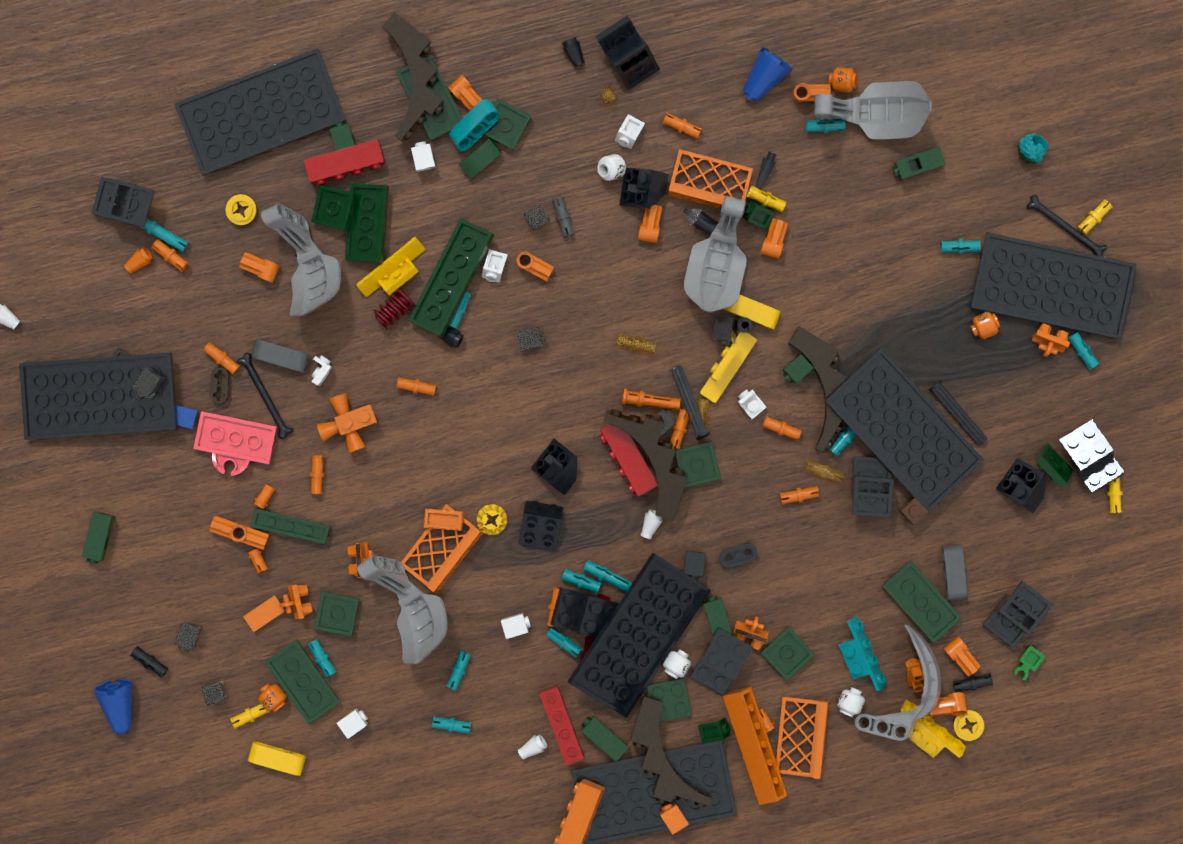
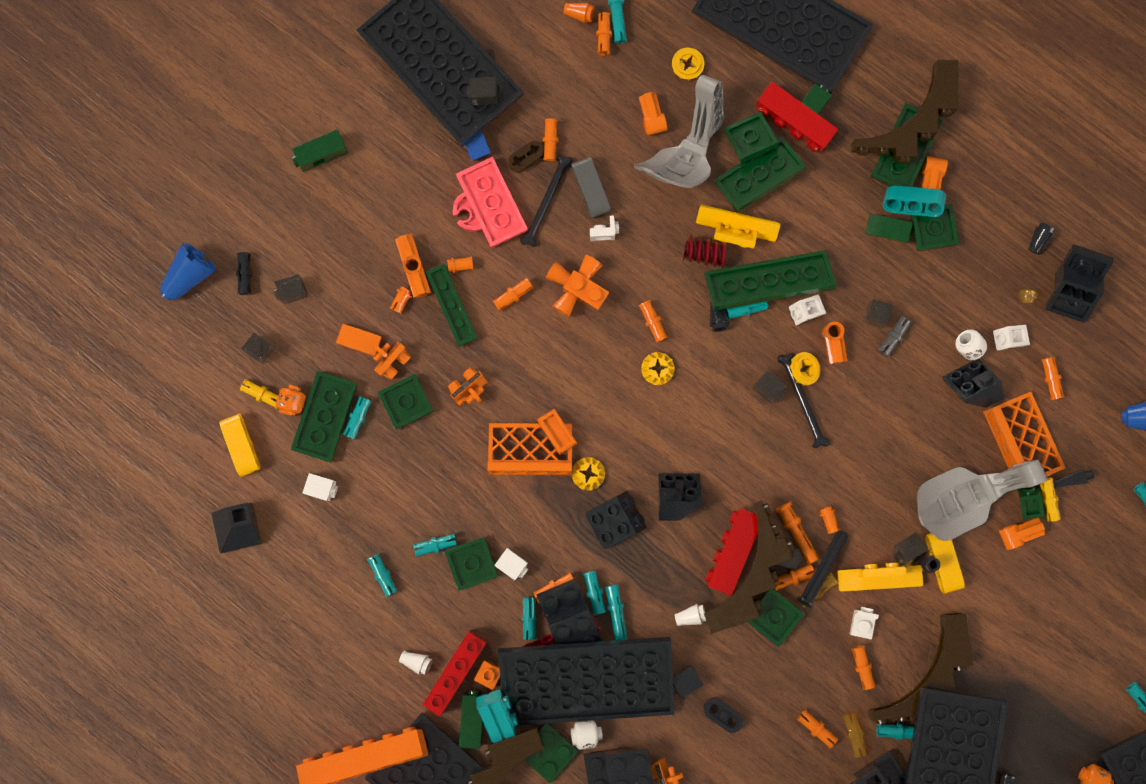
camera: 60 degrees right, 5 degrees down
(336, 805) = (236, 527): none -> black slope
(422, 615) = (458, 477): light grey piece -> none
(423, 156) = (852, 180): white brick -> none
(463, 408) = (651, 375): none -> yellow gear
(492, 654) = (471, 563): none -> dark green plate
(521, 311) = (818, 437): none -> black piece
(543, 299) = (811, 374): none -> yellow gear
(580, 702) = (488, 674): none -> orange brick
(614, 718) = (496, 715): none -> teal brick
(636, 343) = (837, 482): clear yellow pin -> none
(649, 228) = (945, 417): orange piece -> none
(658, 369) = (829, 519): none -> orange pin
(700, 220) = (986, 456): black piece -> none
(716, 614) = (656, 736): dark green brick -> none
(797, 369) = (925, 641): dark green brick -> none

